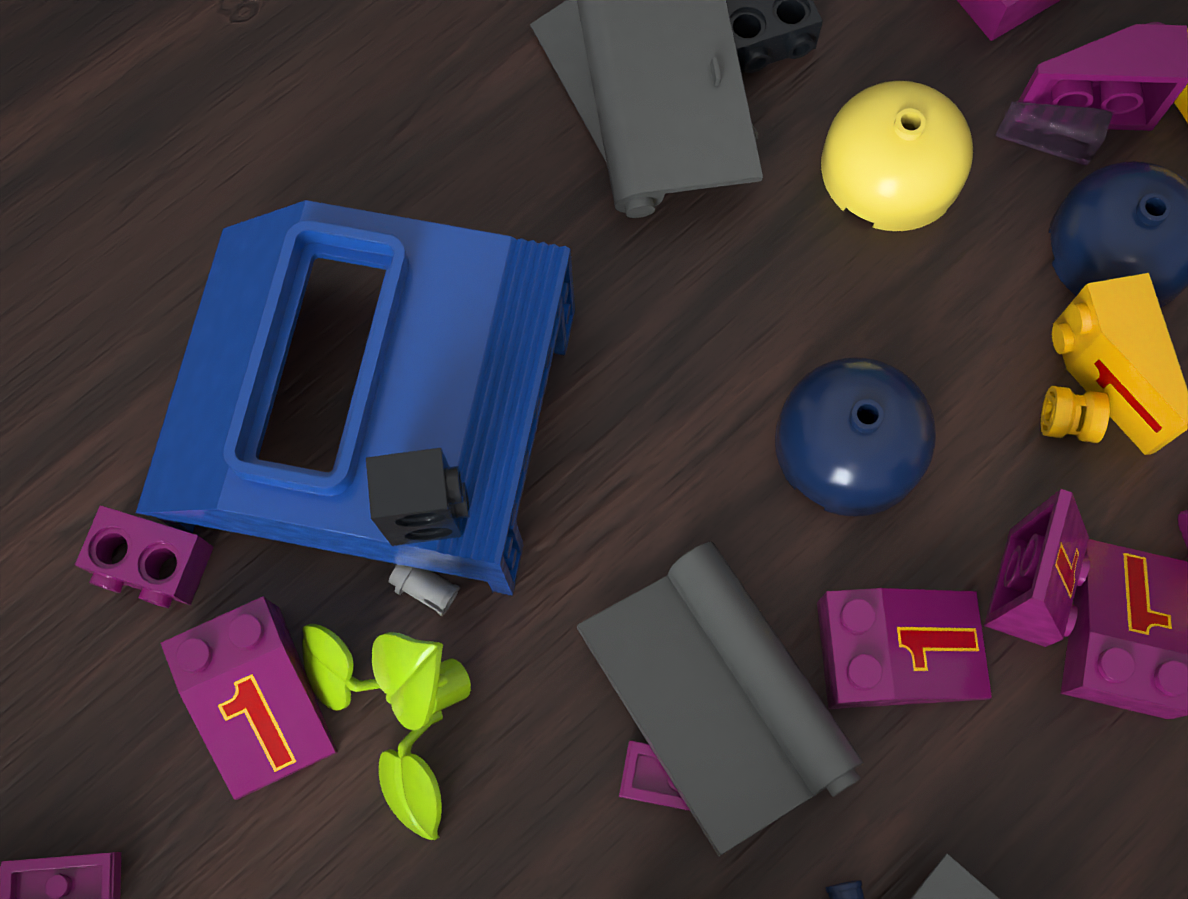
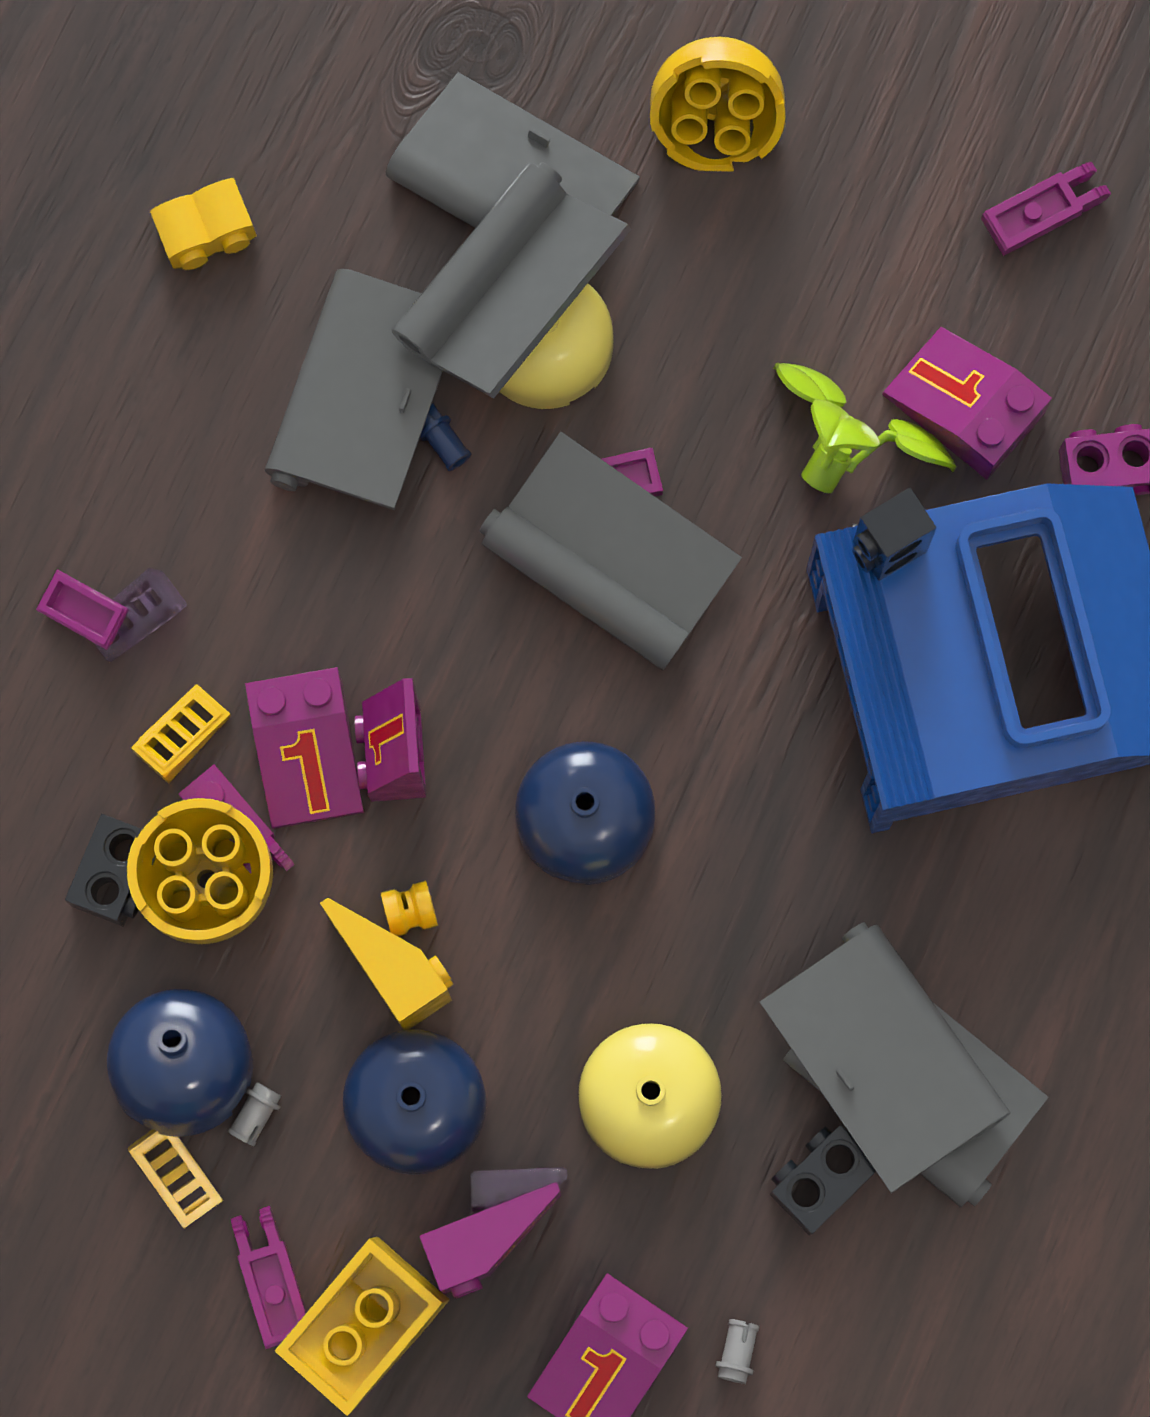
camera: 155 degrees right, 5 degrees up
(902, 647) = (479, 653): magenta slope -> none

